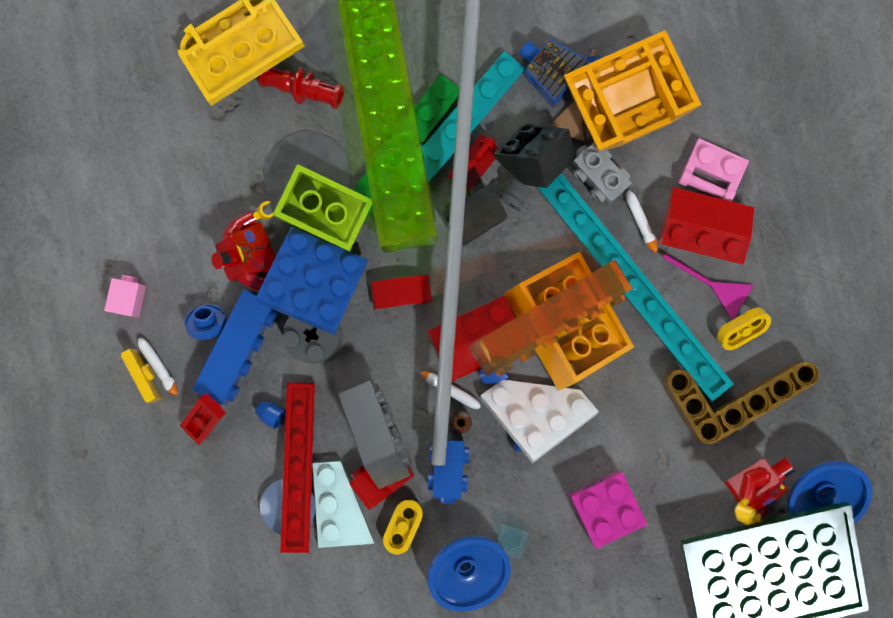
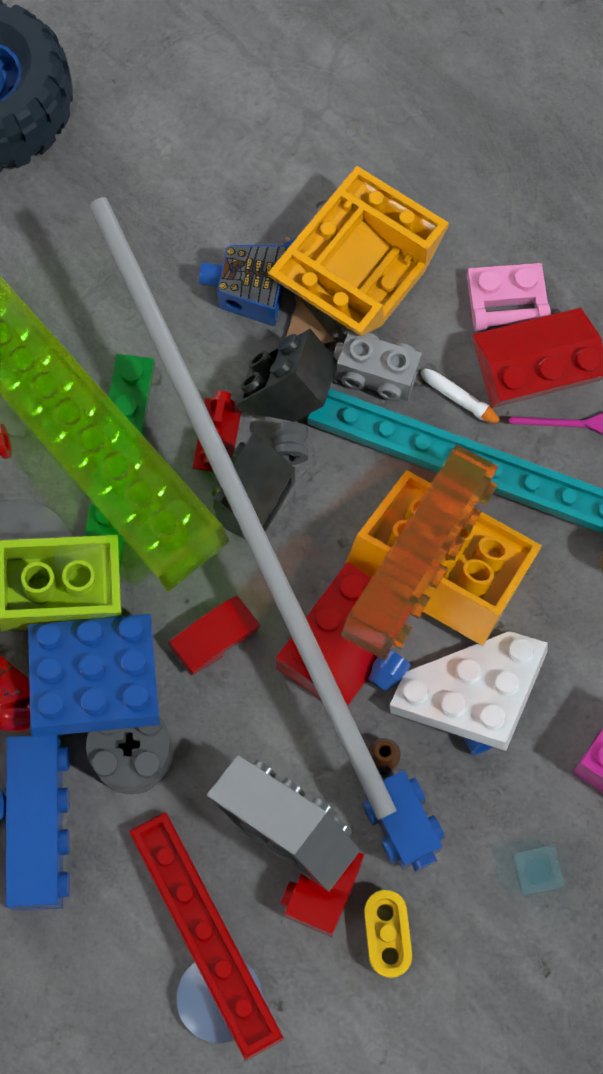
camera: 35 degrees left, 15 degrees down
(202, 418) = (40, 939): red plate -> none
(270, 414) = (129, 885): blue hose -> none
(337, 509) = (287, 961): light aqua wing -> none
(456, 393) = (319, 722): white piece -> none
(473, 583) = (528, 945): blue dish -> none
(485, 97) = (191, 333): teal plate -> none

